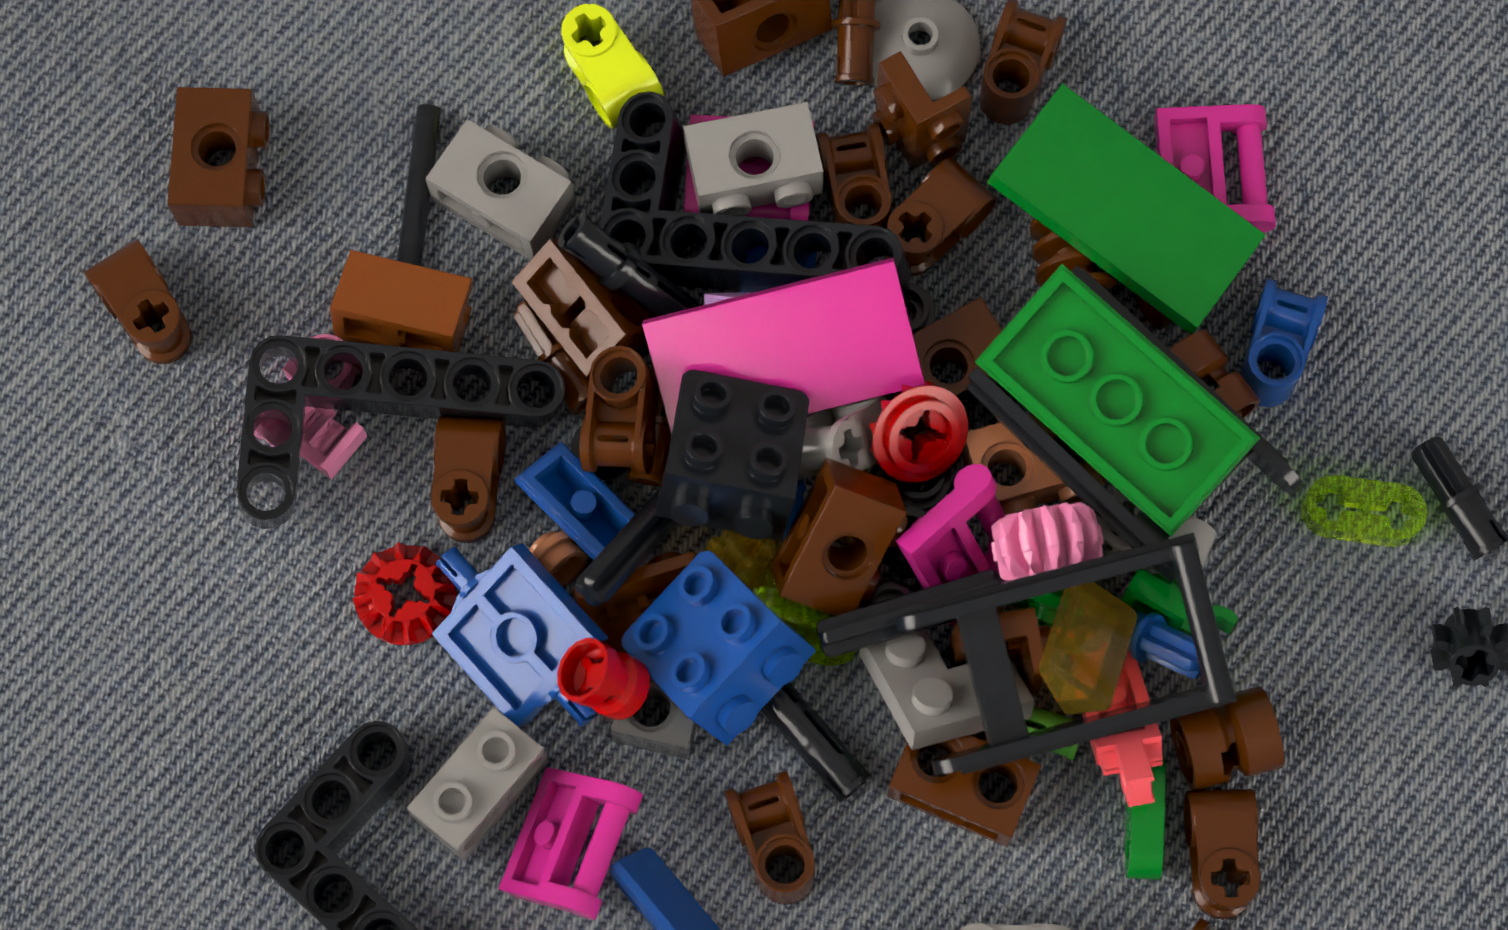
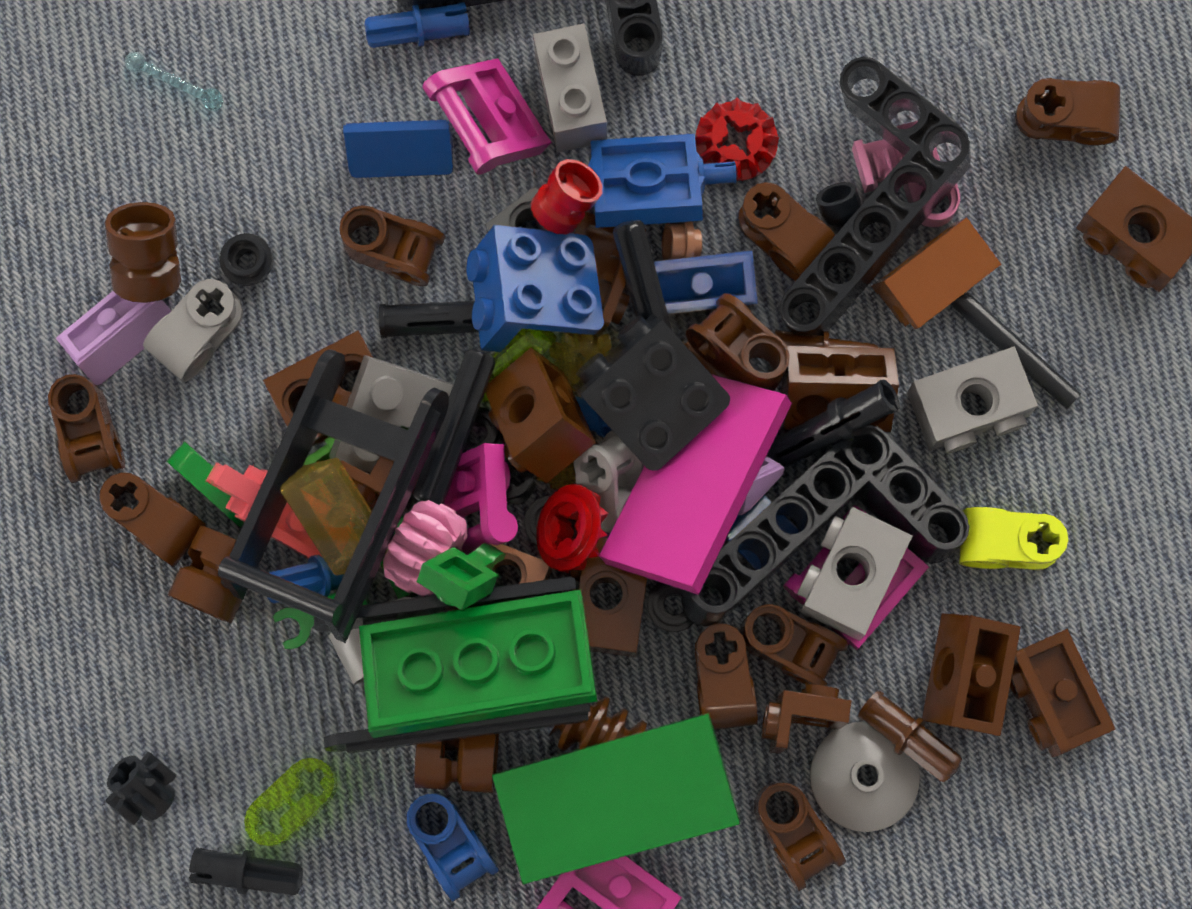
camera: 130 degrees right, 5 degrees up
(400, 455) = (838, 203): none -> black hinge
(1053, 471) = (459, 577): none -> green plate

